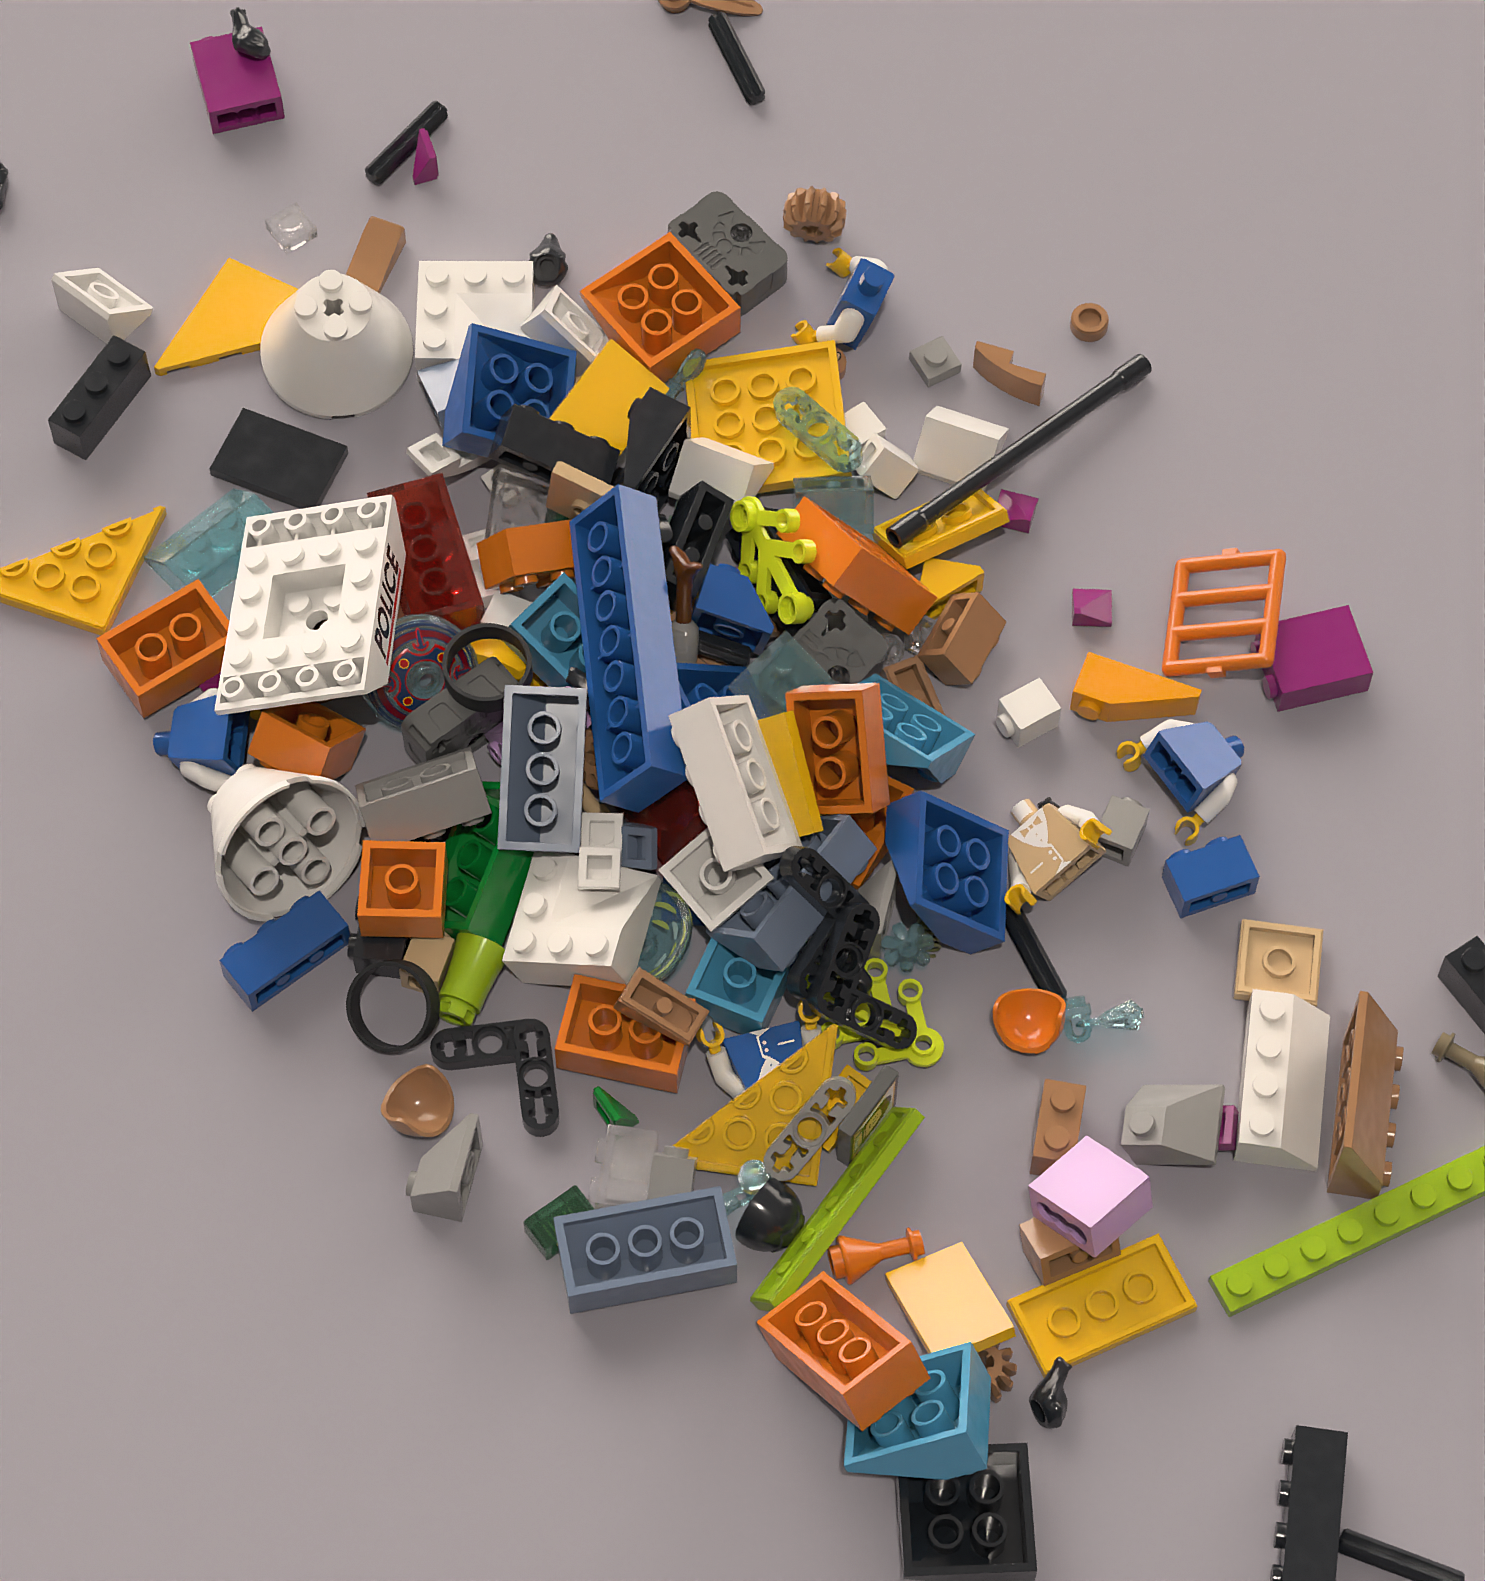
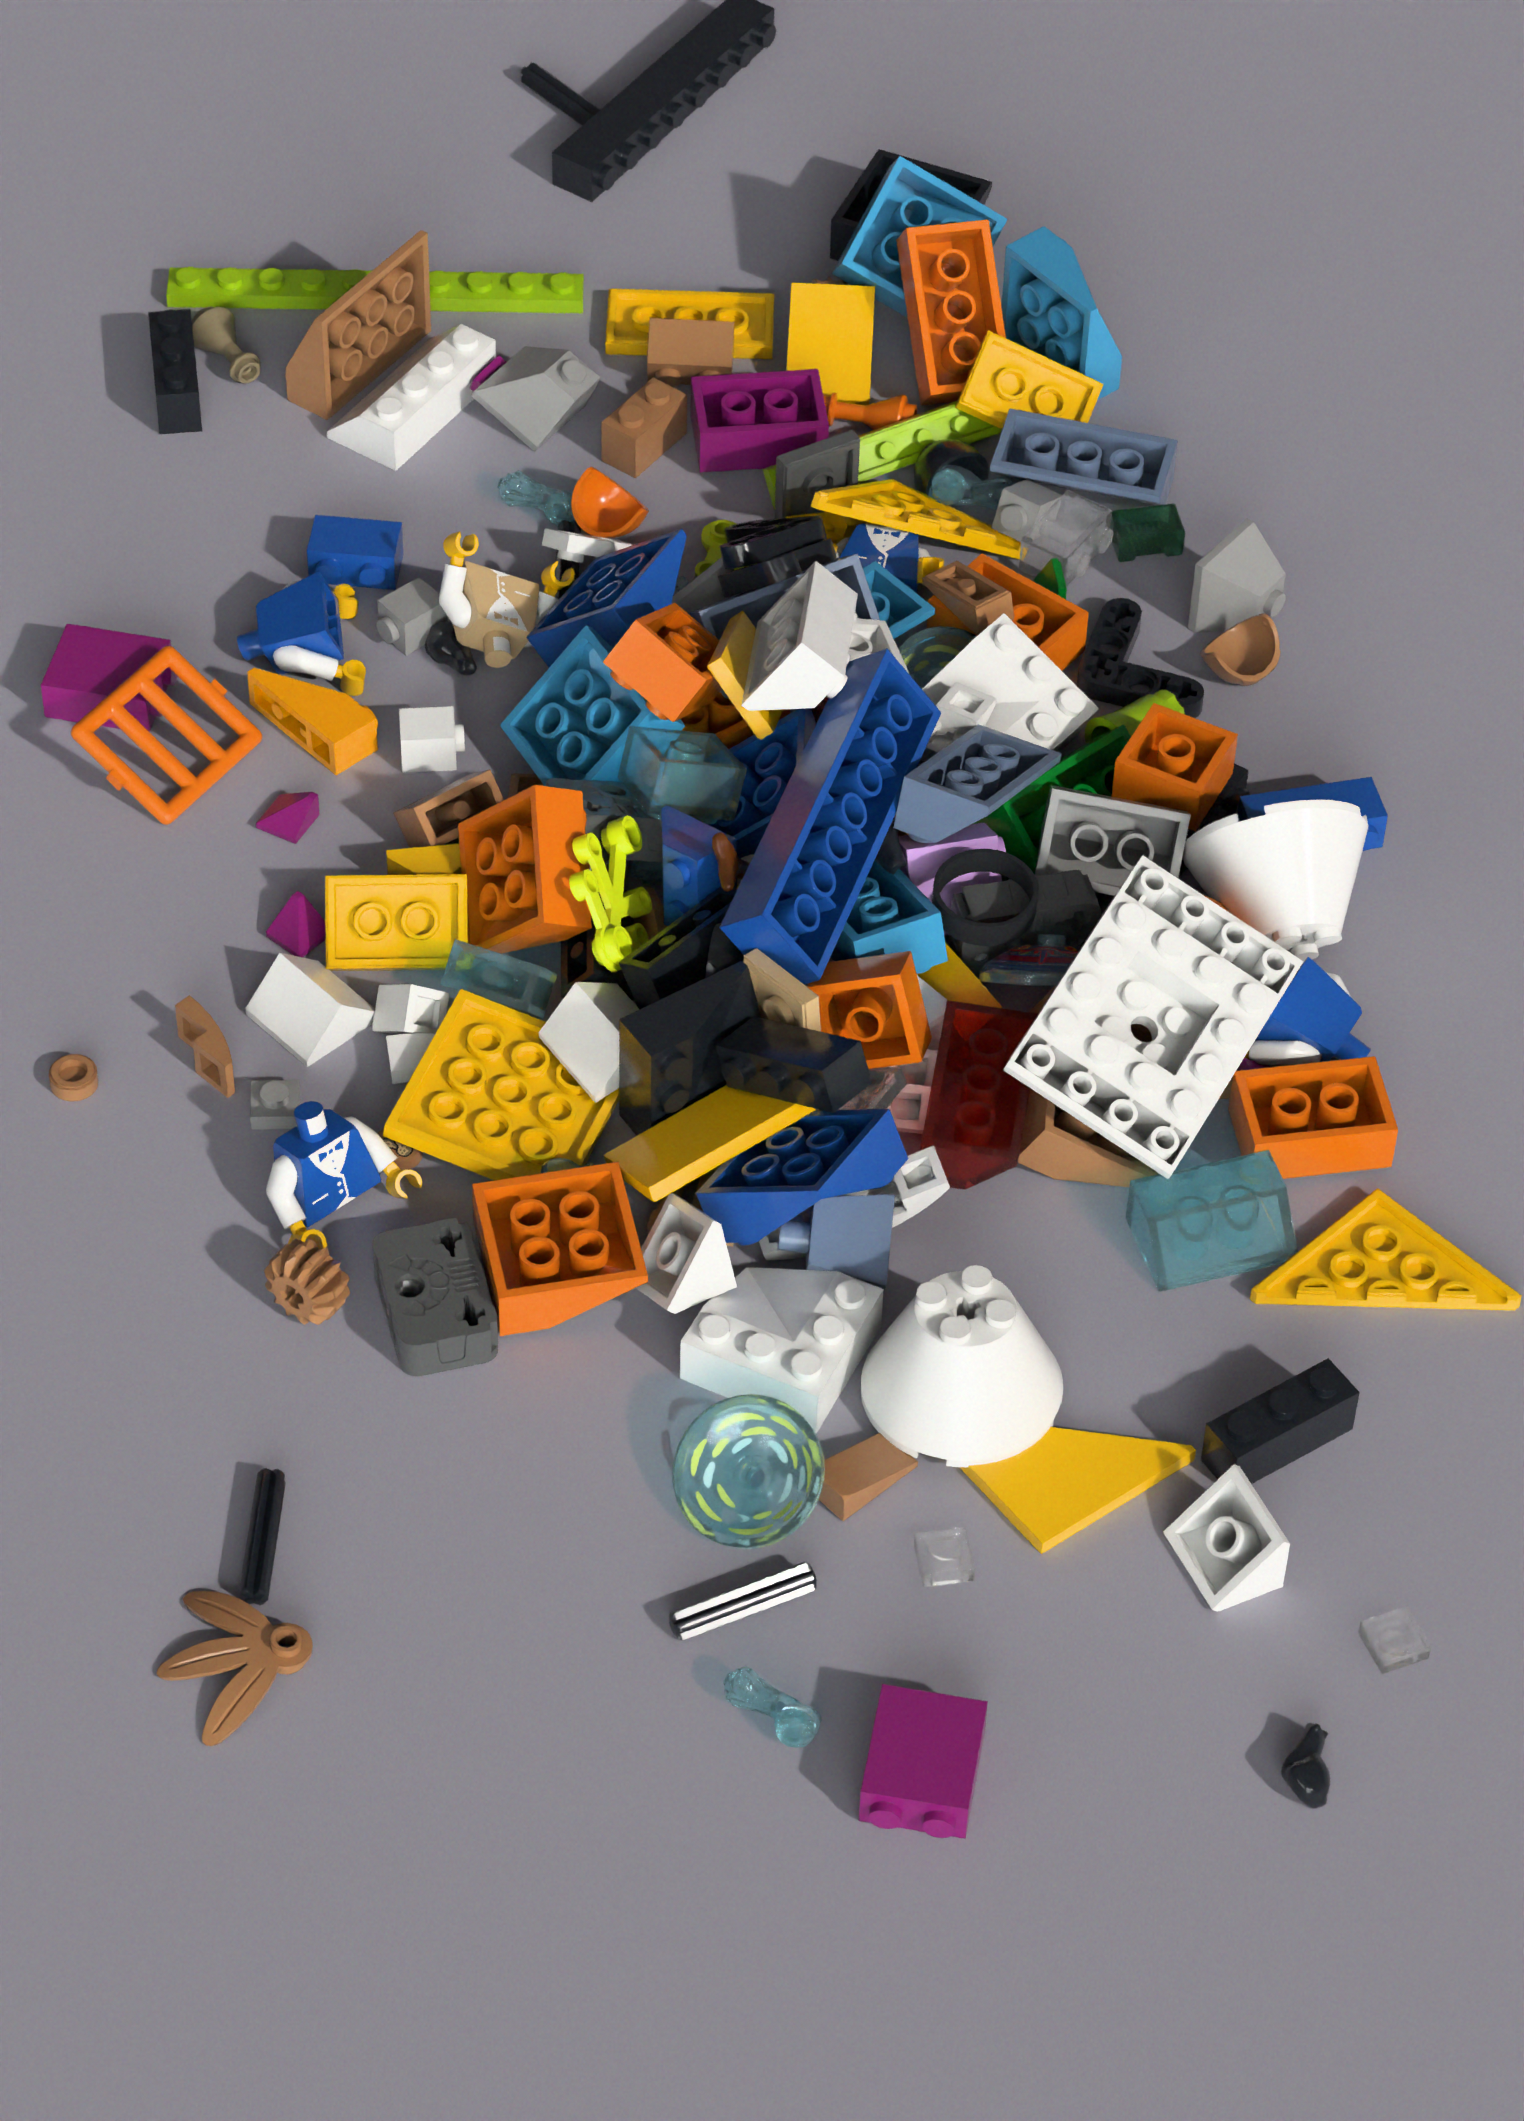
camera: 155 degrees left, 15 degrees down
(246, 37) = (891, 1761): black animal -> none
(278, 460) = (1092, 1293): black tile -> none
(354, 1012) = (1237, 712): black tyre -> none
(371, 83) = (794, 1724): none -> clear light blue piece
(425, 160) = (735, 1559): magenta slope -> none
(441, 203) = (724, 1452): none -> clear light blue dish
(548, 262) = (649, 1378): black animal -> none
(734, 1312) = (1023, 380): none -> yellow tile
(744, 1406) = (1053, 310): none -> dark azure slope
(799, 1159) = (879, 477): light grey beam -> none
(822, 445) = (465, 1051): clear light blue beam -> none
(918, 520) = (90, 997): black piece -> none
(960, 1175) = (755, 417): none -> magenta brick
(1017, 955) = (574, 545): none -> white plate
(1048, 1398) = (777, 276): black animal -> none
(1090, 1196) = (659, 333): piece -> none
(1278, 960) = (344, 475): tan plate -> none

